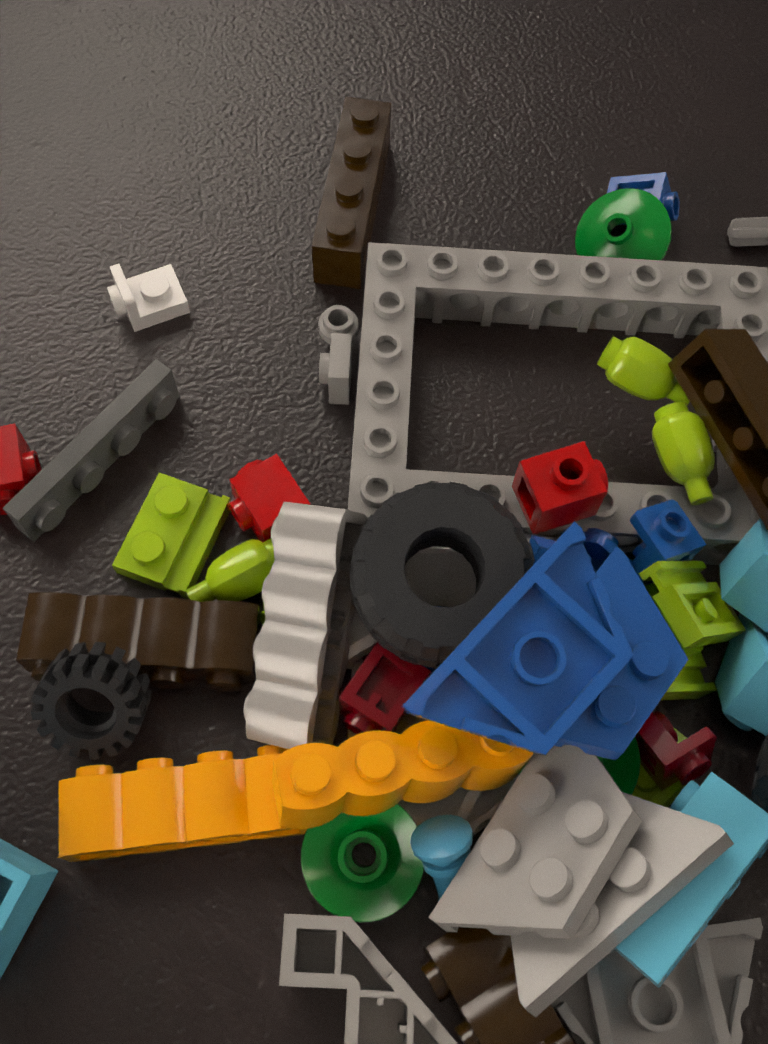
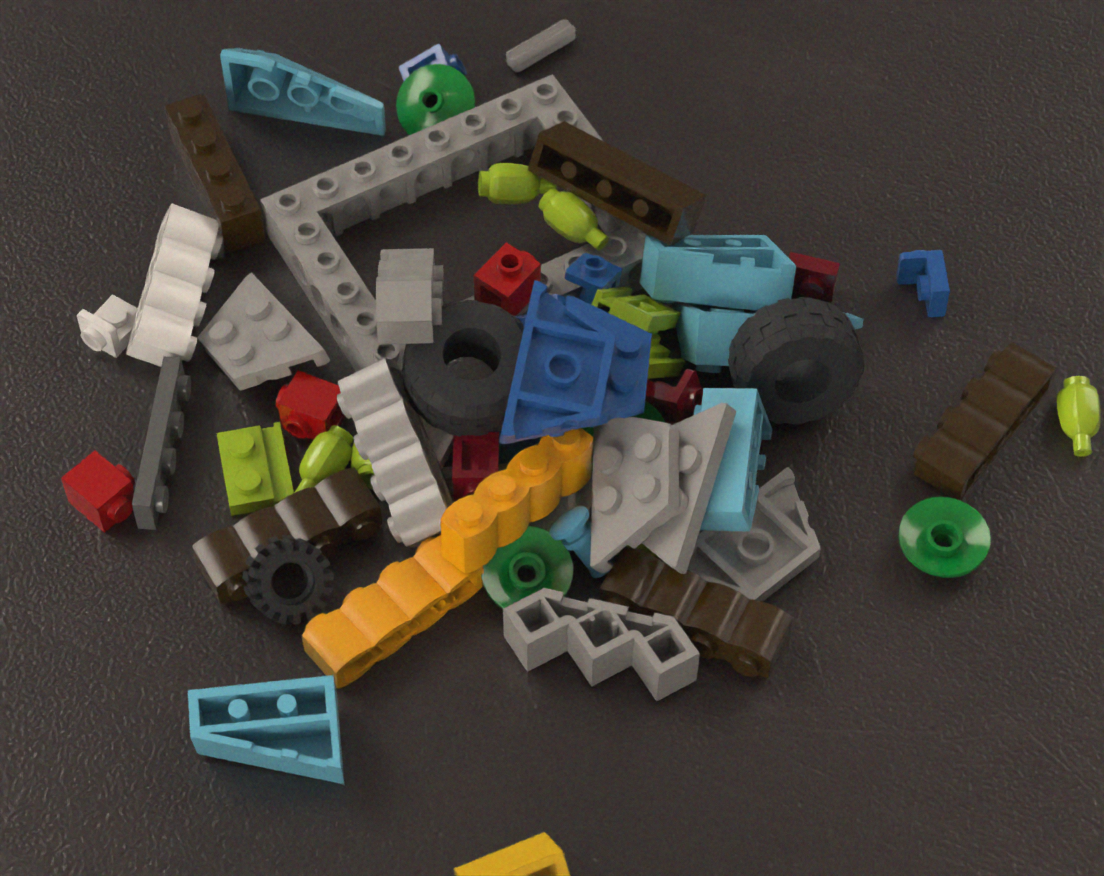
camera: 30 degrees left, 10 degrees down
(225, 289) = (174, 287): none -> white brick
(269, 392) = (257, 337): none -> light grey wing
(338, 328) = (276, 273): light grey plate -> none
(418, 447) = (408, 296): none -> light grey brick
(480, 143) = (285, 90): none -> medium azure wedge

